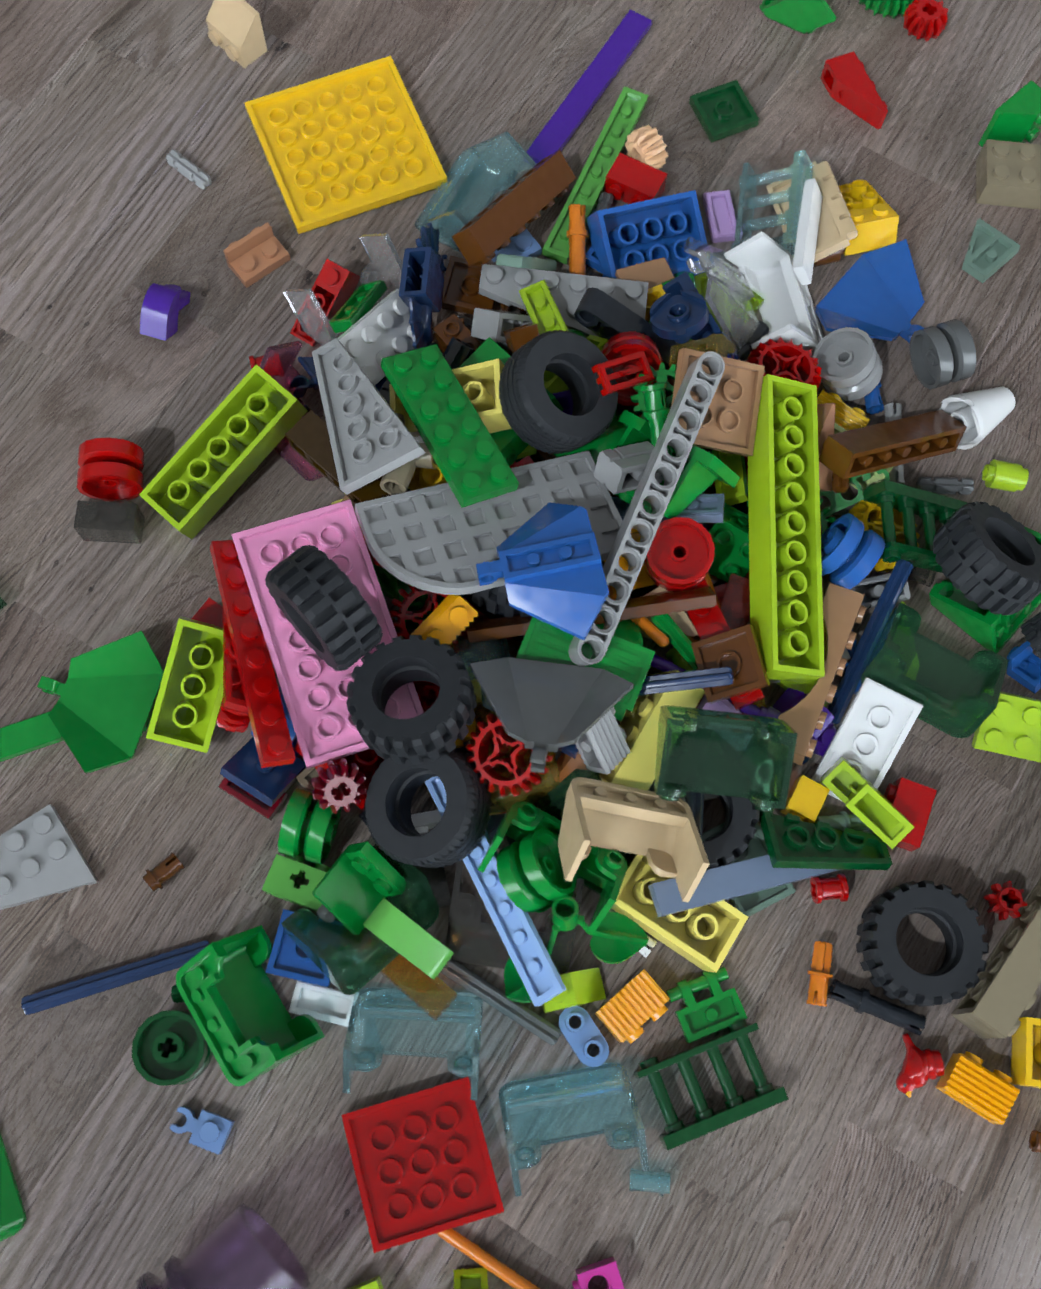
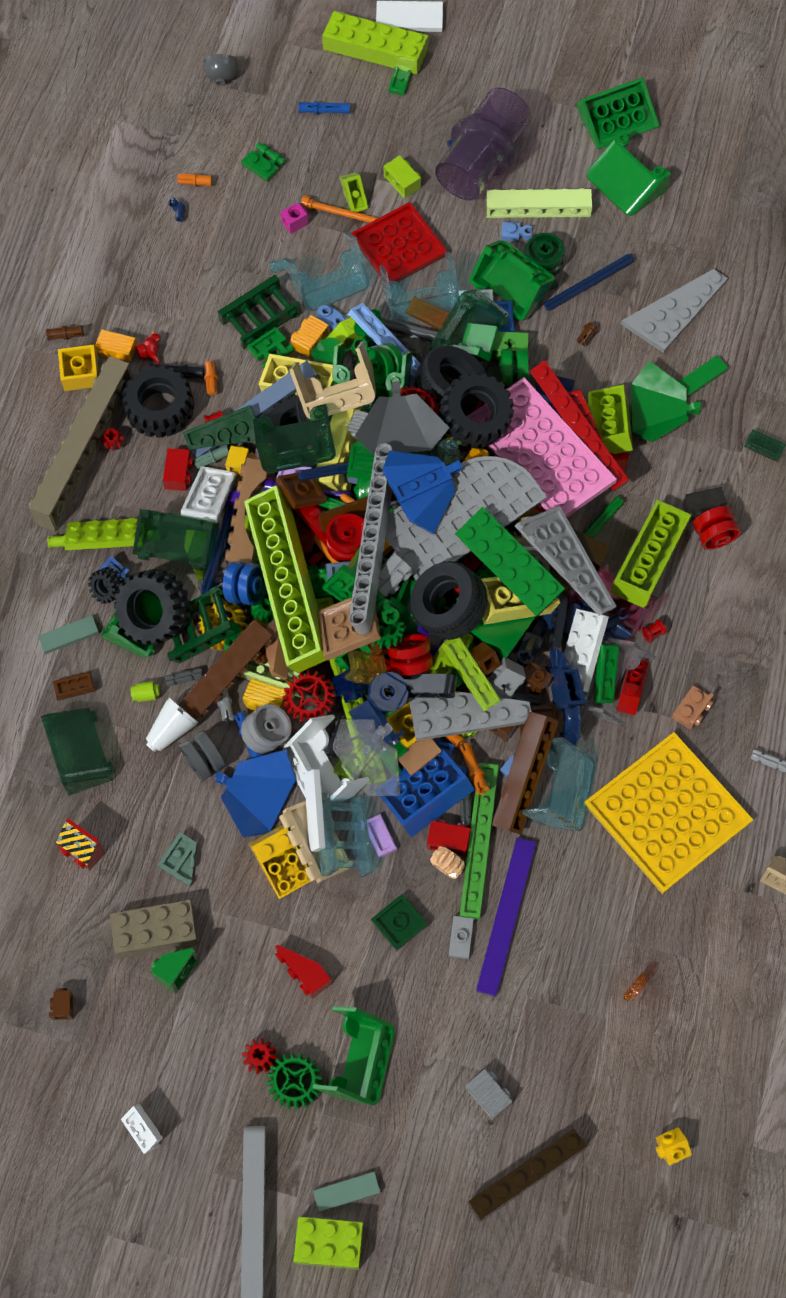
camera: 170 degrees right, 5 degrees down
(136, 1175) = (538, 203): none -> yellowish green brick
(161, 310) = (736, 647): dark purple brick -> none
(324, 607) = (541, 431): black tyre -> none
(346, 792) = (504, 372): dark red gear -> none
(408, 938) = (439, 320): bright green beam -> none
(526, 262) = (503, 735): sand green tile -> none
(605, 379) = (414, 622): red tile -> none
(653, 78) = (461, 937): none -> light grey plate
(867, 802) = (204, 461): lime slope -> none

